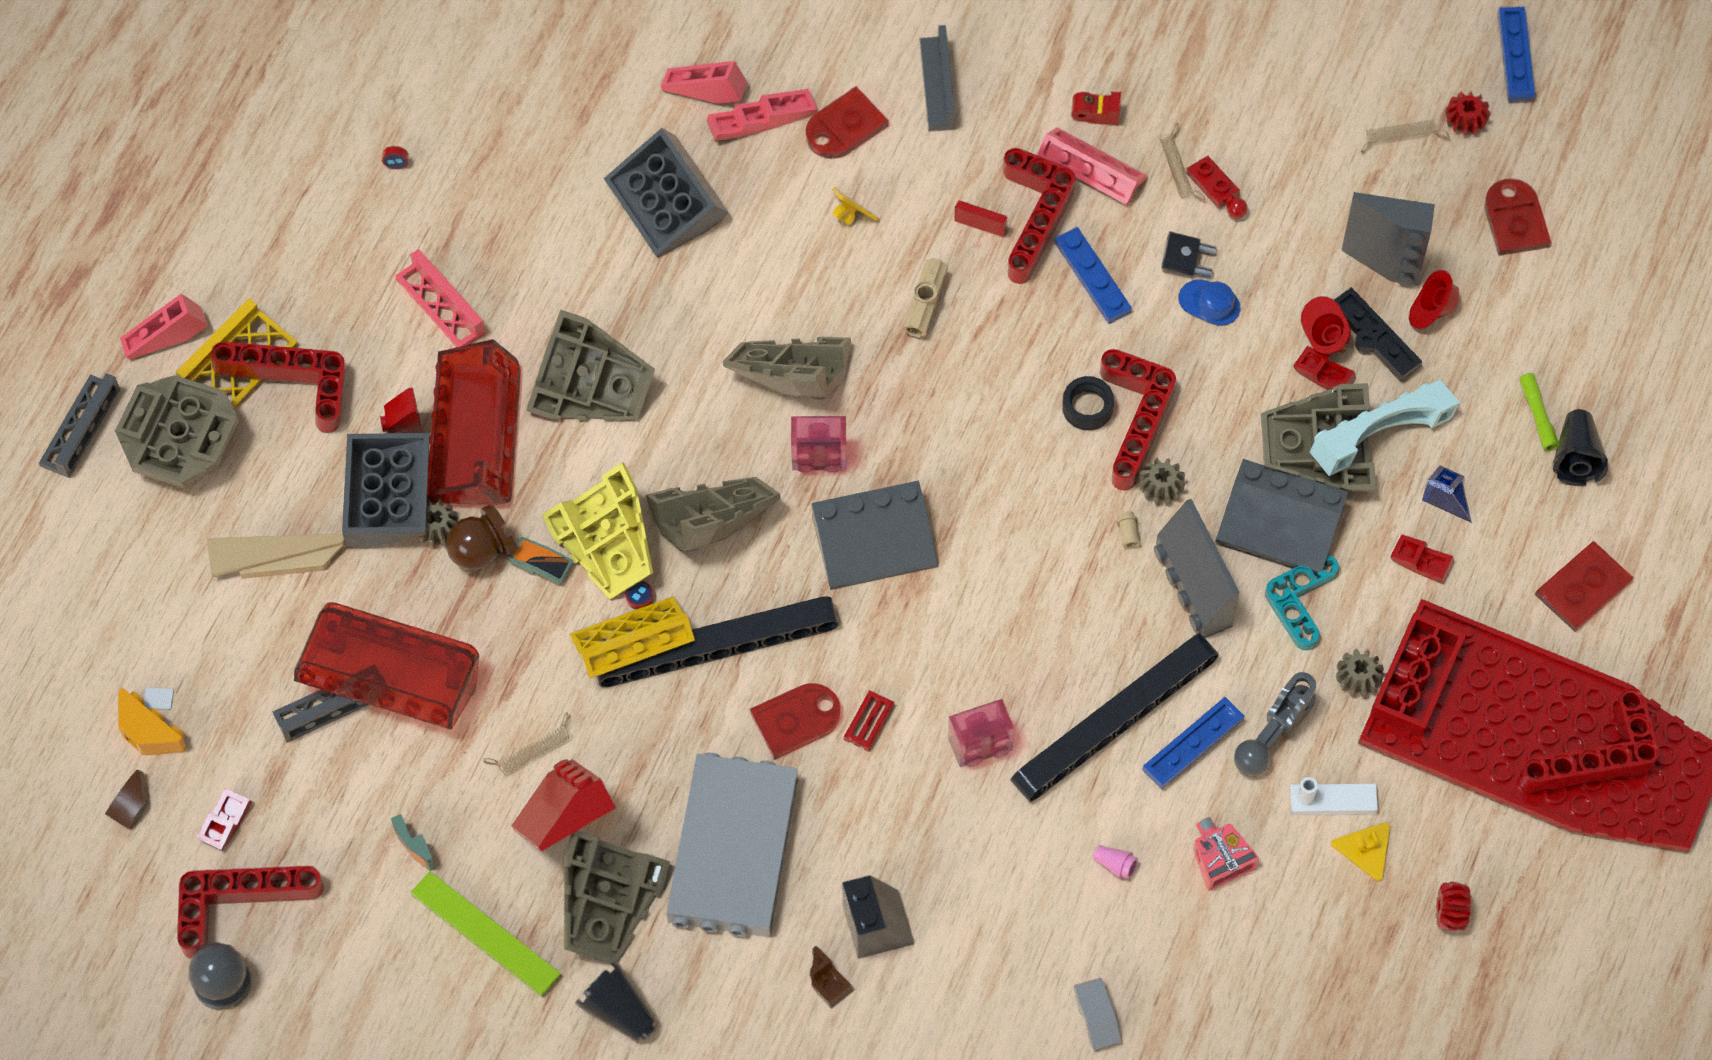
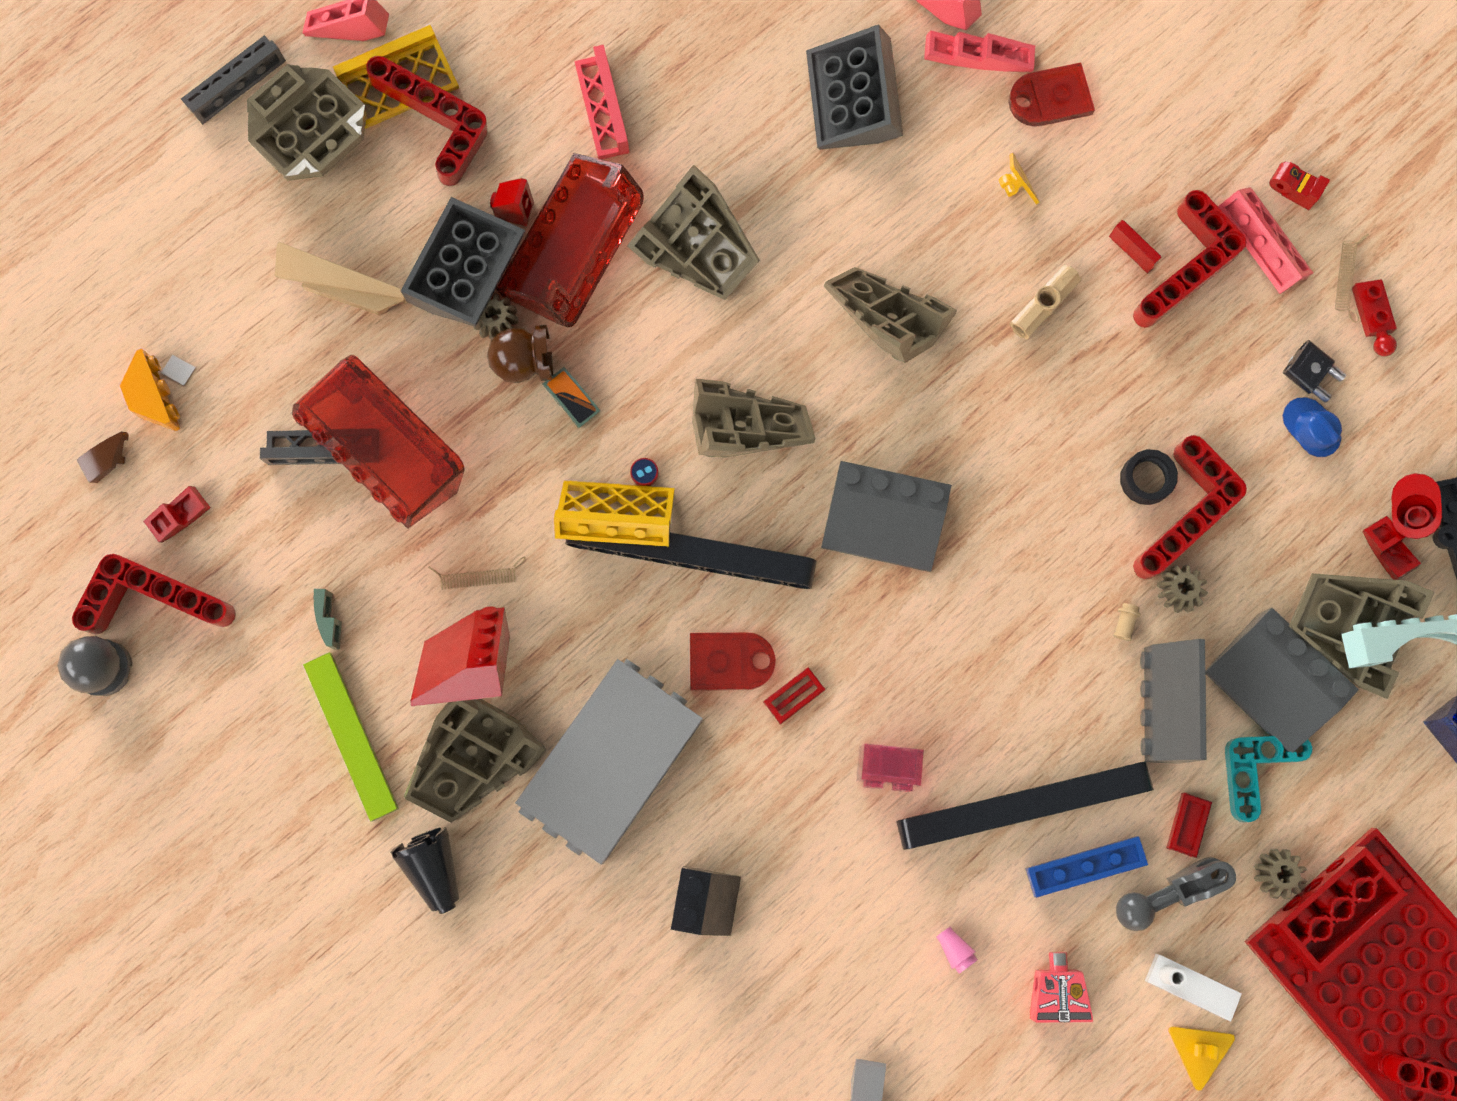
camera: 25 degrees right, 15 degrees up
(605, 532) = (638, 400): light yellow wedge -> none
(818, 443) = (876, 403): clear pink brick -> none
(827, 980) = (634, 934): reddish brown slope -> none
(937, 81) = (1159, 91): dark grey fence -> none
(1093, 275) = (1214, 350): blue plate -> none
(1264, 670) = (1189, 825): none -> red tile
(1422, 560) = (1395, 785): red slope -> none

